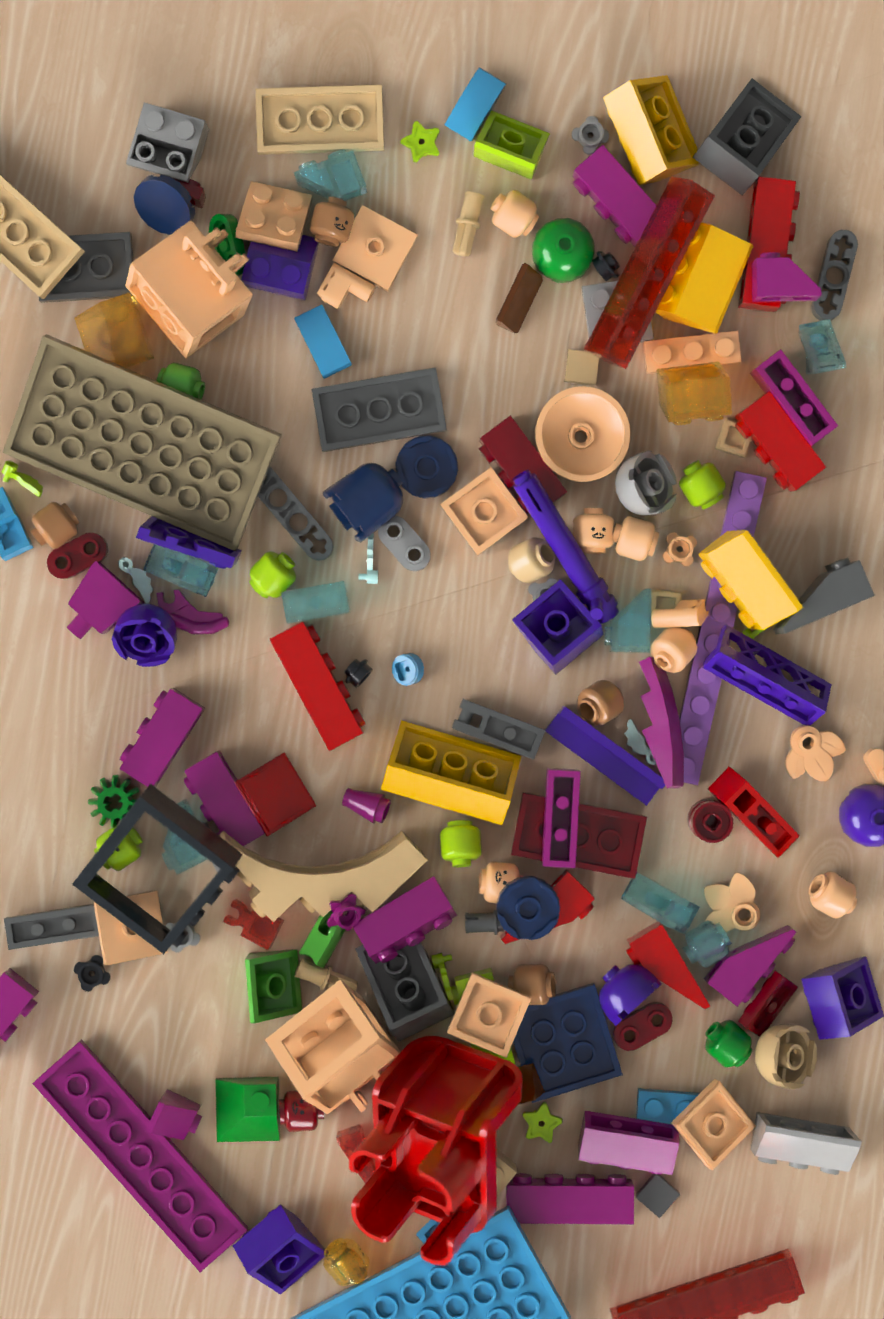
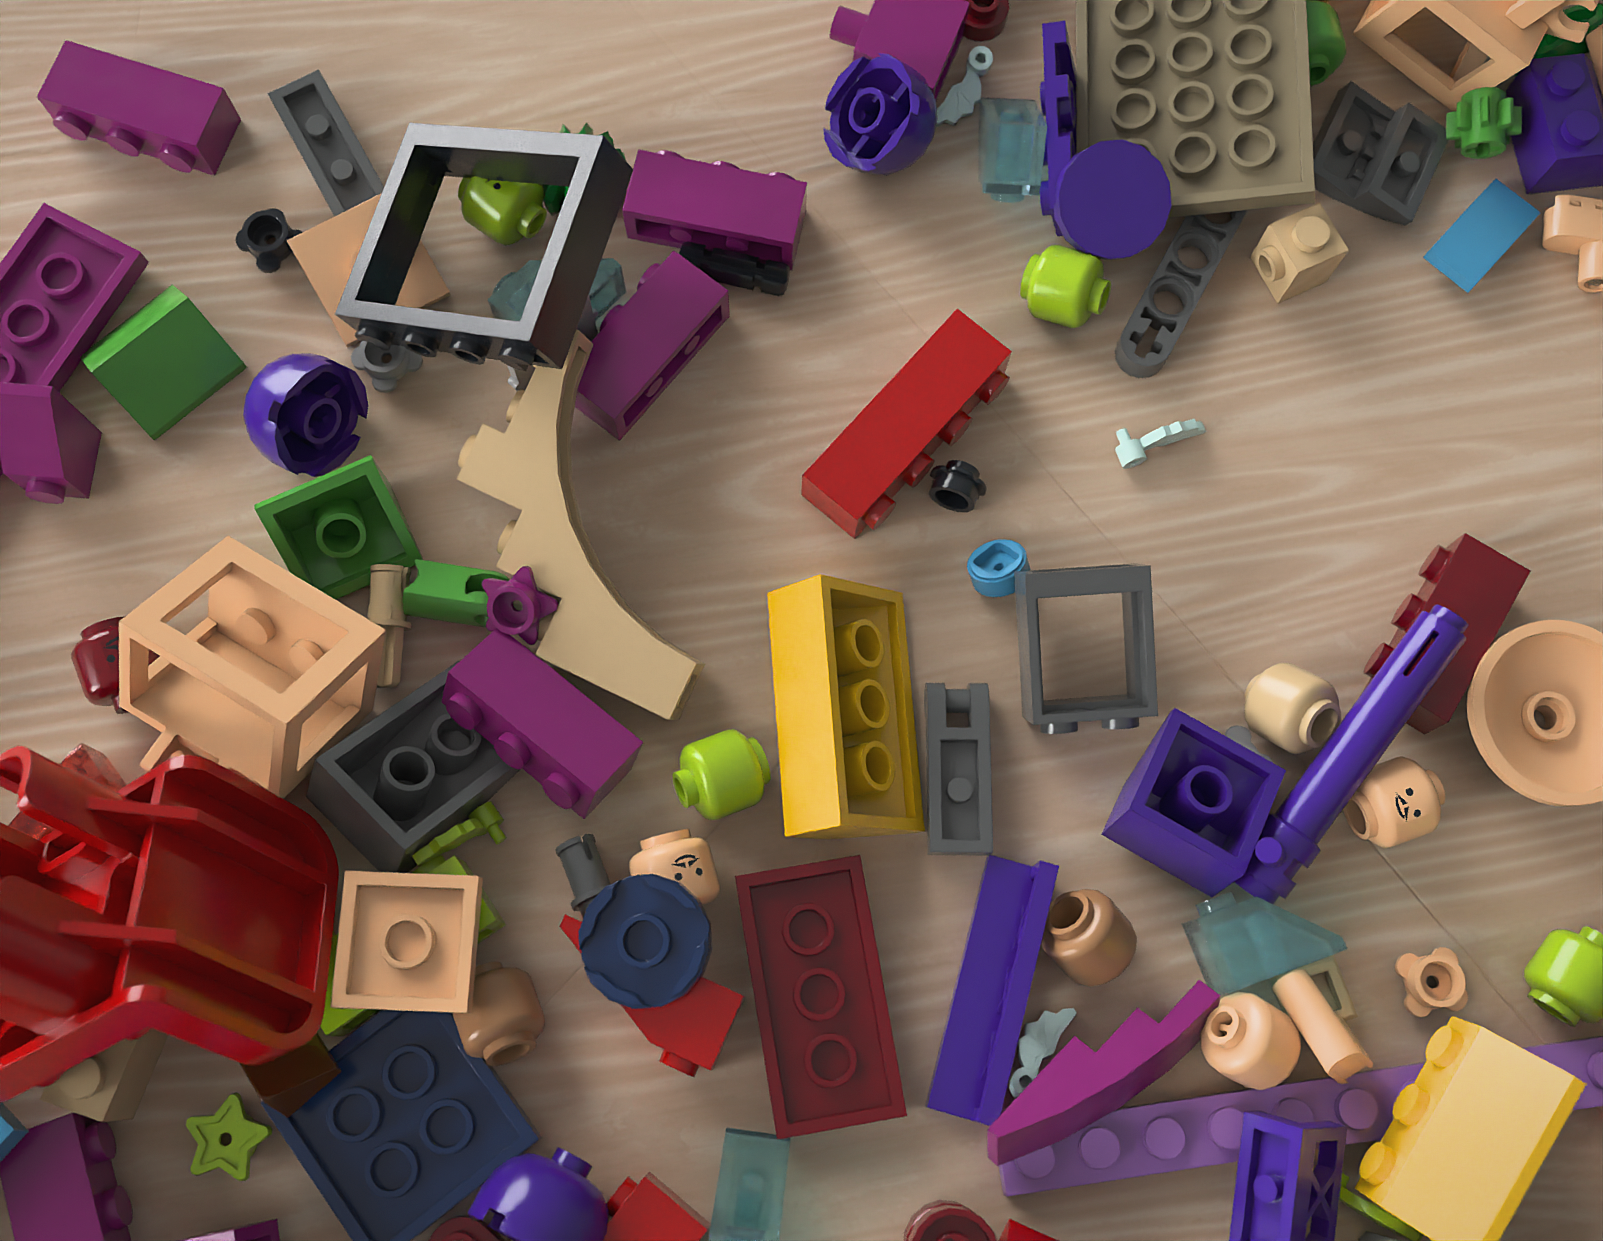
camera: 70 degrees right, 15 degrees down
(140, 1048) = (163, 362): none -> bright green slope
(189, 618) = (931, 188): magenta piece -> none
(197, 739) = (738, 268): none -> black axle
(201, 985) = (305, 413): none -> dark purple cylinder
(241, 537) = (1112, 199): none -> dark purple tile
(247, 1109) = (95, 573): green slope -> none
(255, 374) = (1376, 155): none -> dark grey slope
(256, 929) = (434, 472): clear red plate -> none
(262, 312) = (1483, 123): none -> bright green gear
(275, 794) = (689, 420): red piece -> none
(299, 447) = (1298, 252): none -> tan brick
(316, 602) = (1052, 370): clear light blue brick -> none
(366, 499) = (1267, 383): dark blue cylinder -> none
(367, 804) = (729, 587): magenta cone -> none
(379, 409) = (1418, 362): dark grey plate -> none
(404, 543) = (1213, 482): light grey plate -> none
(427, 466) = (1357, 477): dark blue tile -> none
(435, 641) = (1114, 711): none -> dark grey window
(484, 511) = (1333, 598): light nougat plate -> none
(561, 817) = (847, 935): magenta brick -> none
(635, 538) = (1418, 885): light nougat head -> none
(646, 484) = (1530, 863): light grey cylinder -> none

